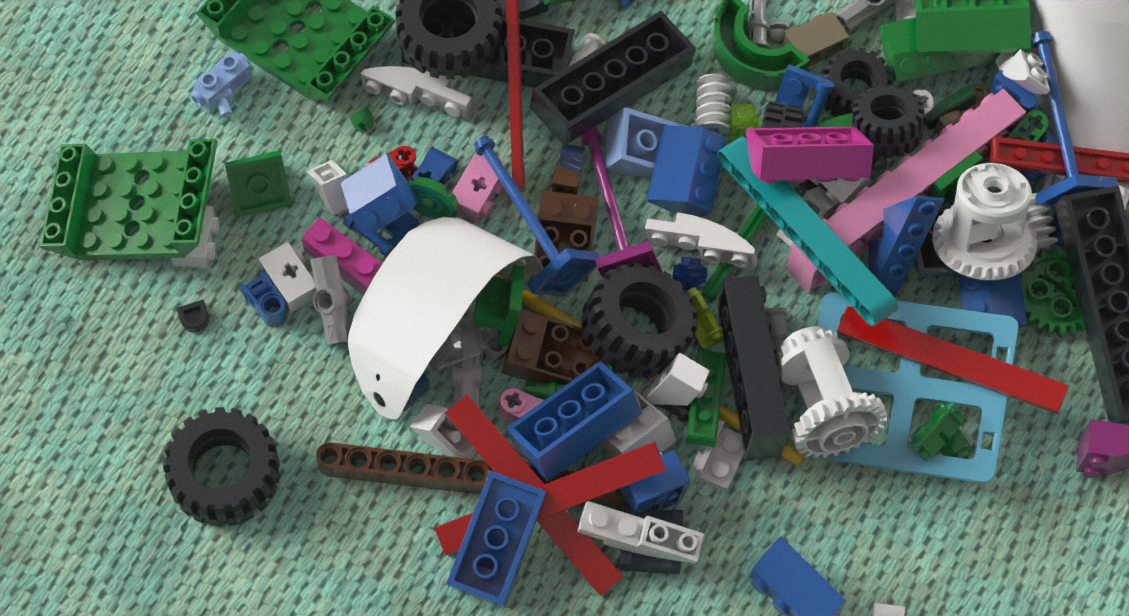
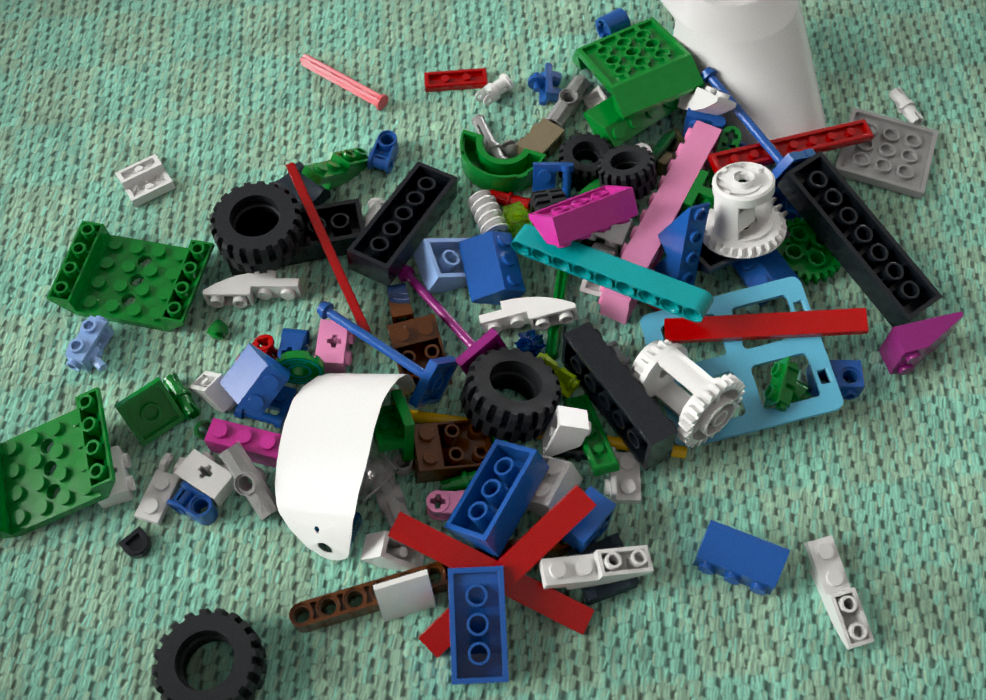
camera: 20 degrees left, 5 degrees down
(236, 271) = (161, 488): none -> white hinge
(296, 179) = (181, 396): none -> green pin
(308, 219) = (205, 424): none -> green hinge
(438, 480) = (404, 595): none -> white slope
(747, 95) = (508, 198): none -> red axle
(1014, 442) = (842, 370): none -> blue brick

